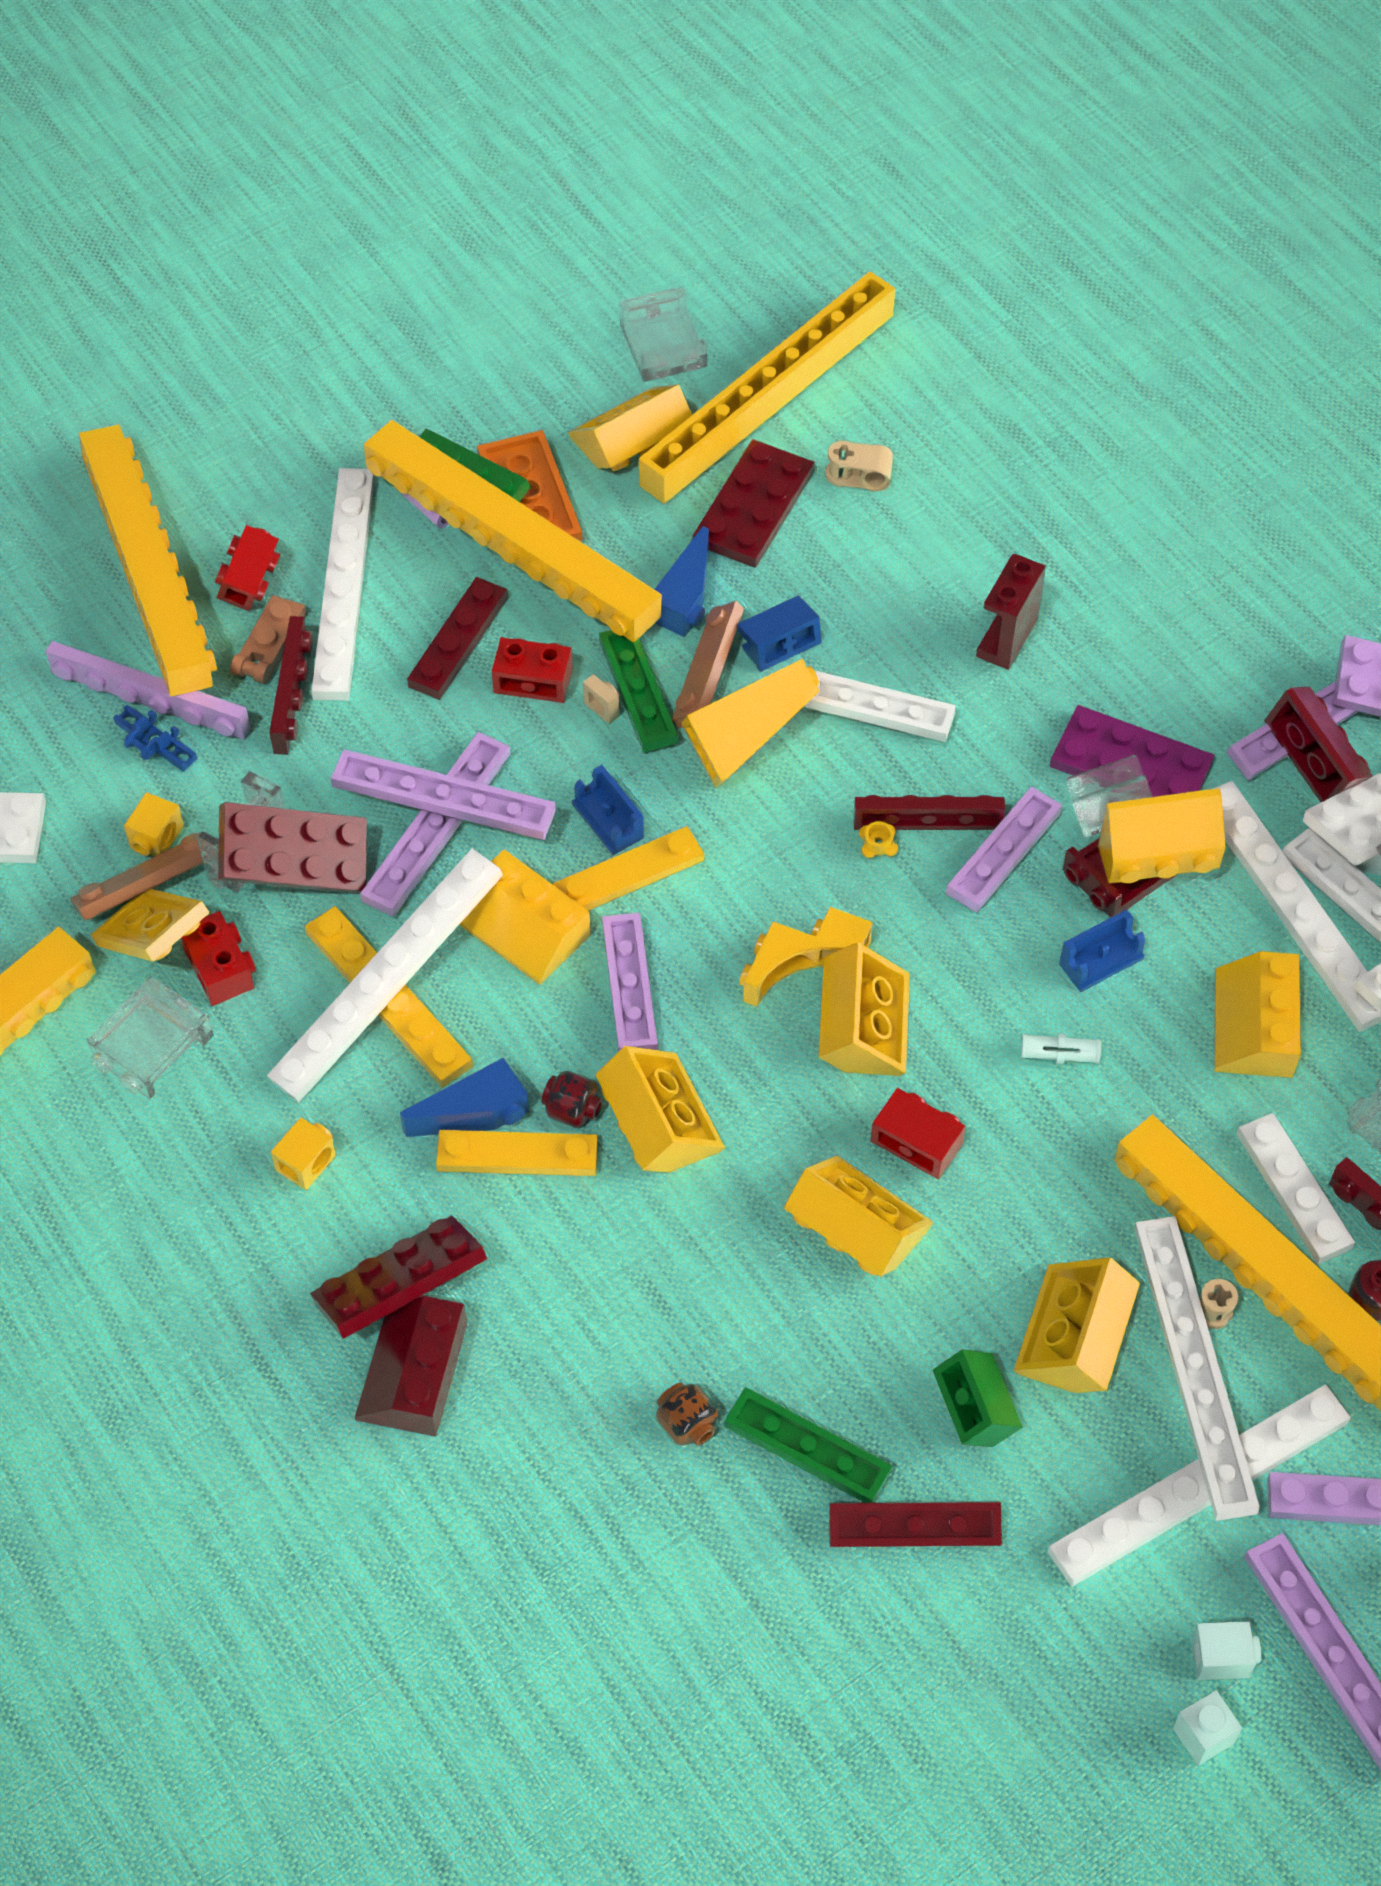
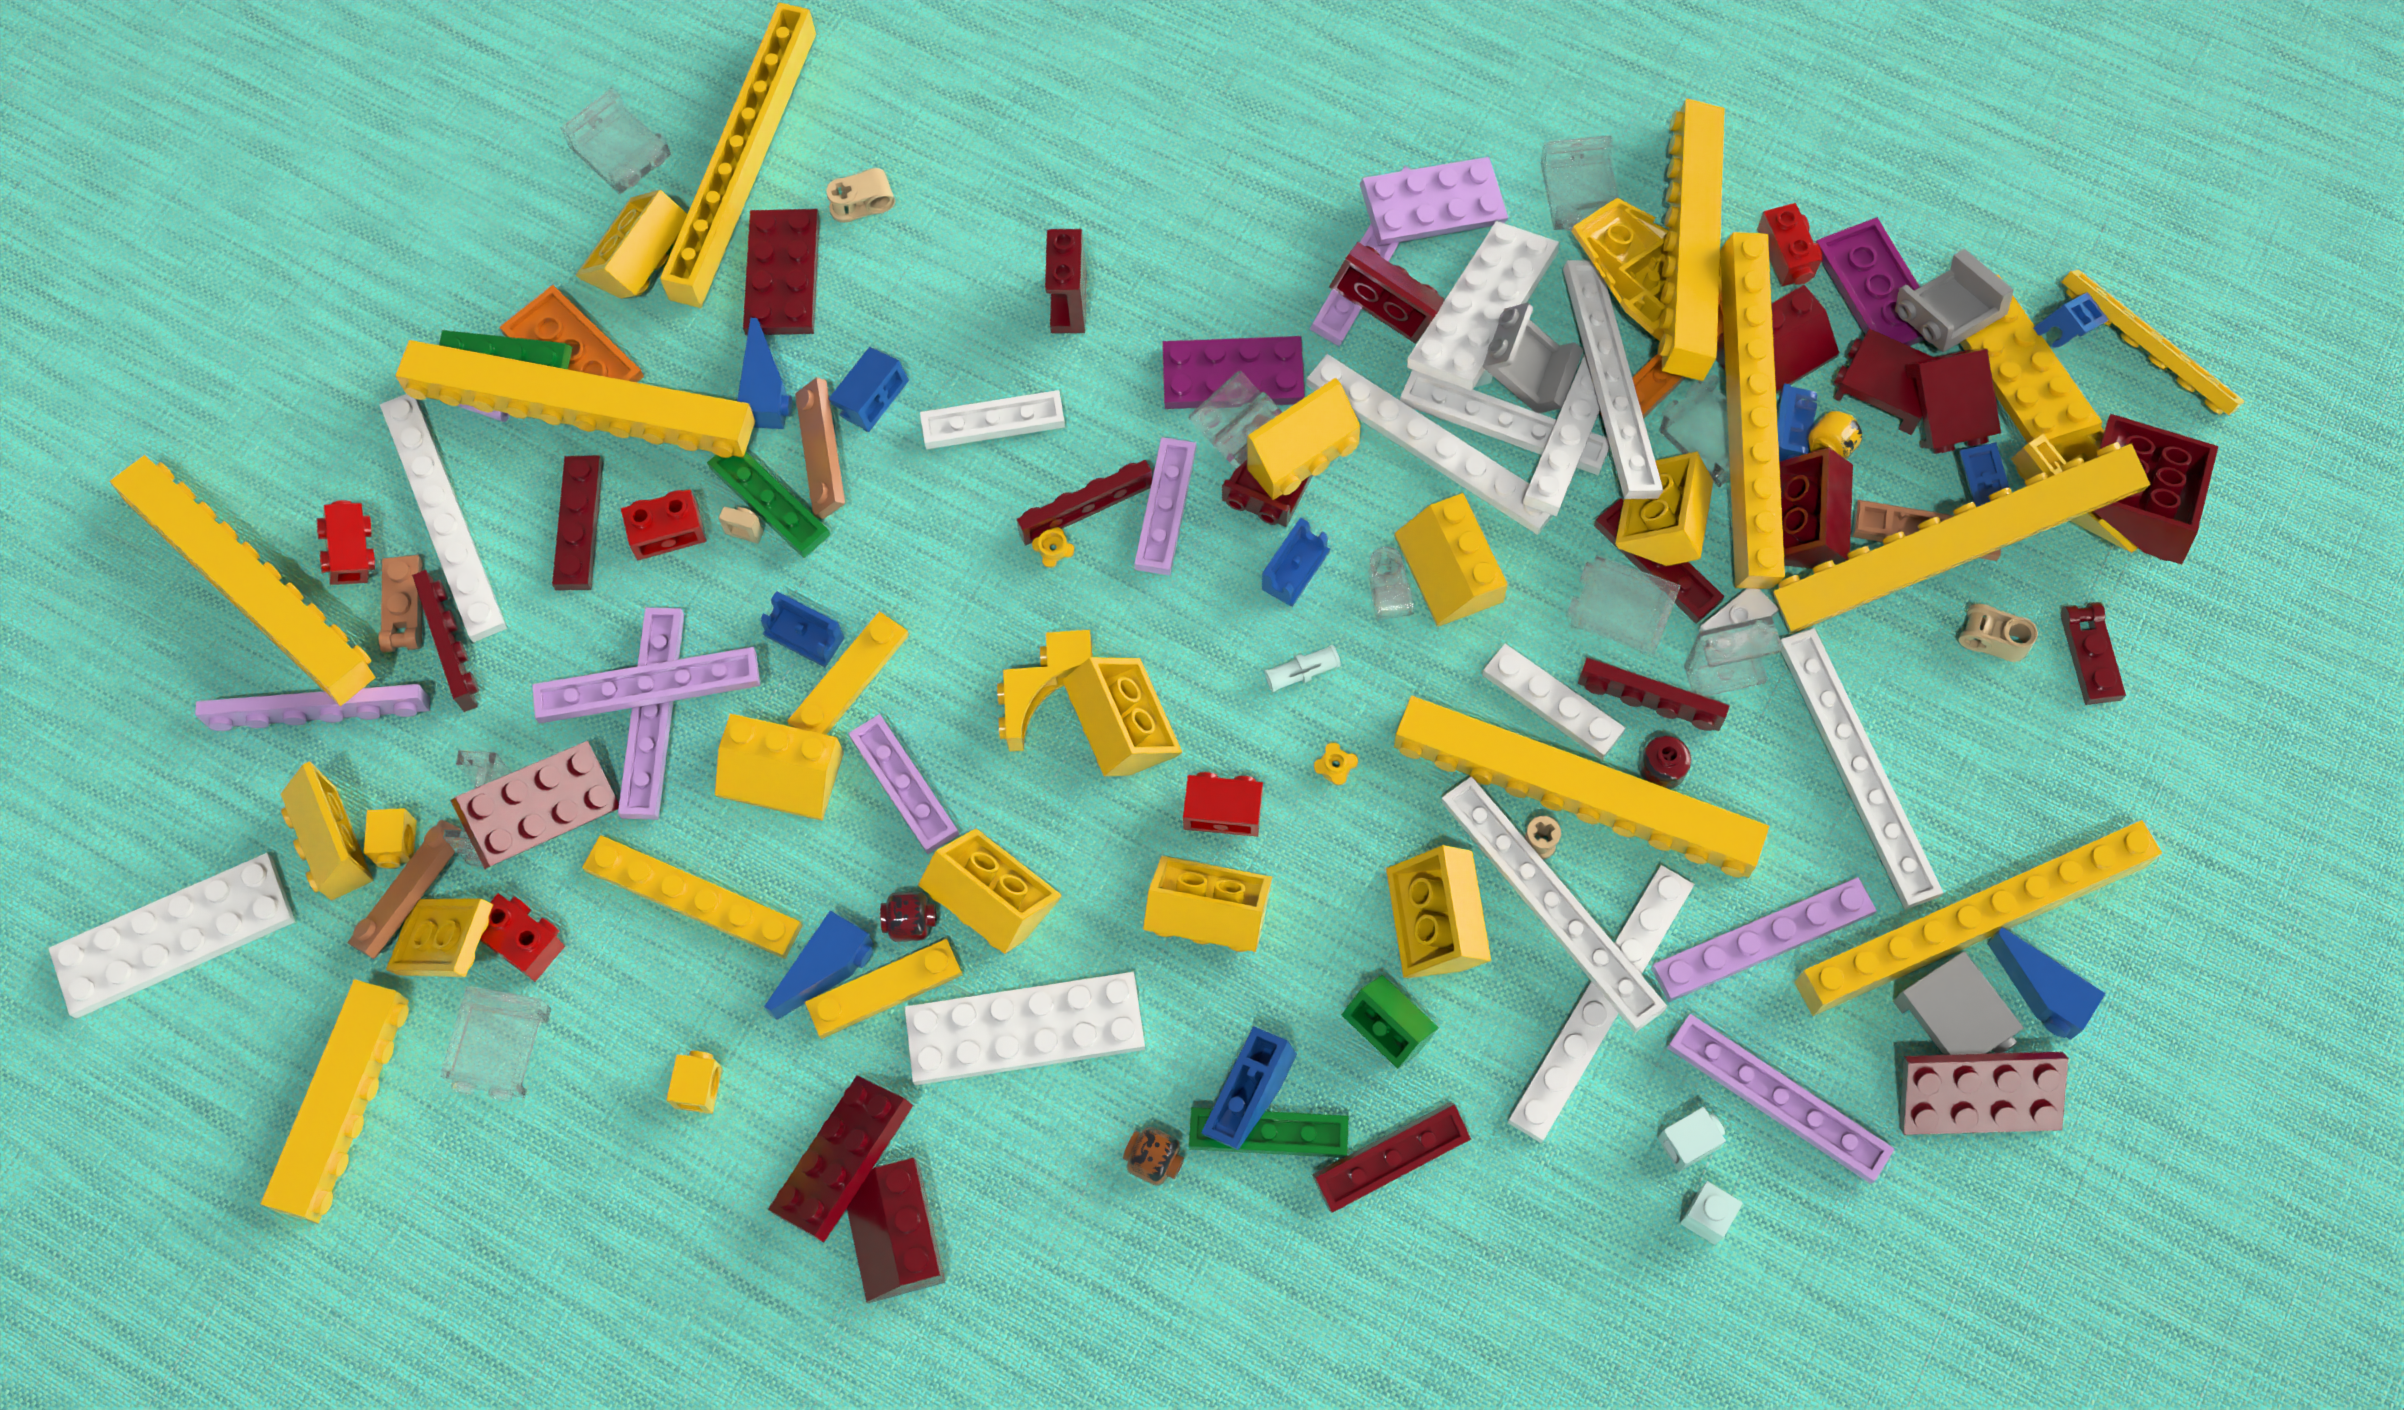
camera: 25 degrees left, 10 degrees up
(99, 797) = (323, 834): none -> yellow slope
(157, 744) = (324, 744): blue piece -> none
(384, 975) = (682, 882): white plate -> none
(628, 1247) = (1024, 1028): none -> white plate
(743, 721) = (884, 491): yellow slope -> none
(812, 1391) = (1250, 1087): none -> blue slope
(1048, 1158) = (1339, 774): none -> yellow plate
(1183, 1012) = (1389, 589): none -> clear piece

